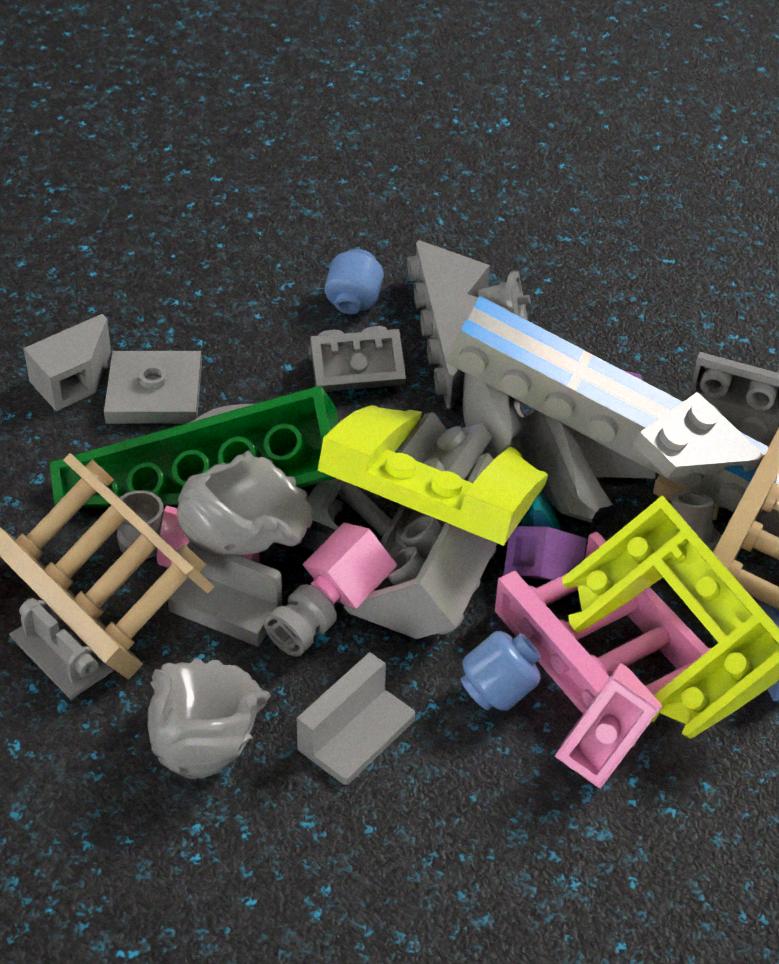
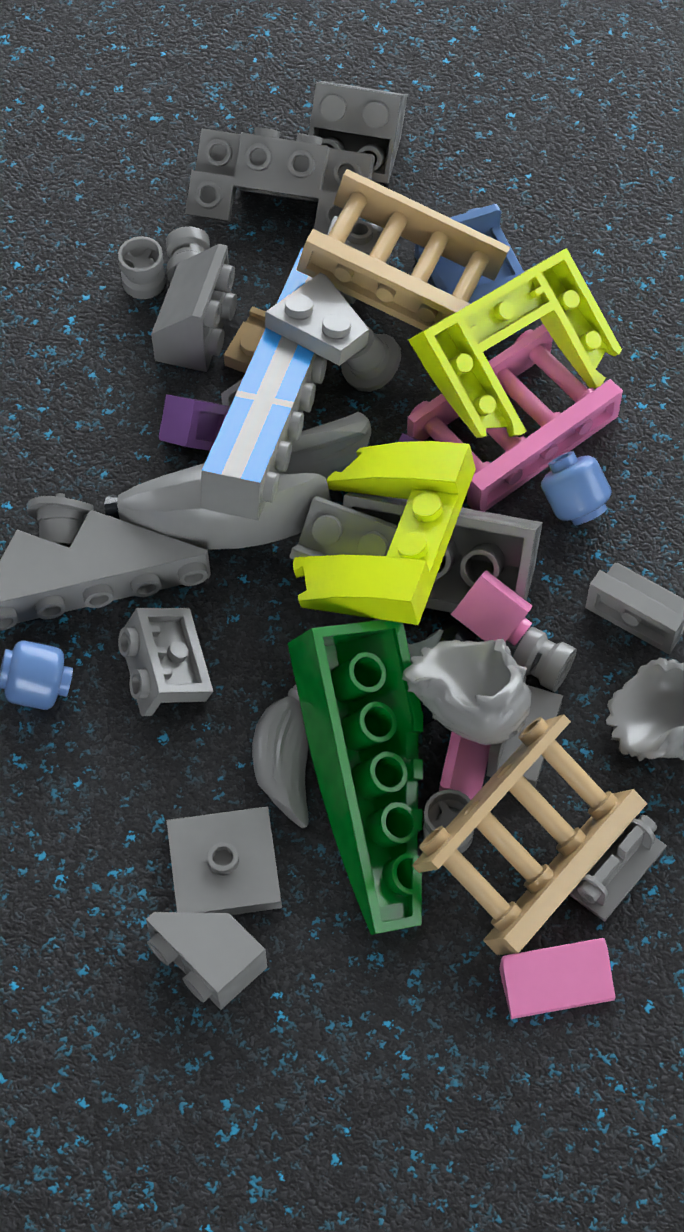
camera: 95 degrees left, 15 degrees up
(609, 727) = (623, 404): bright pink slope -> none

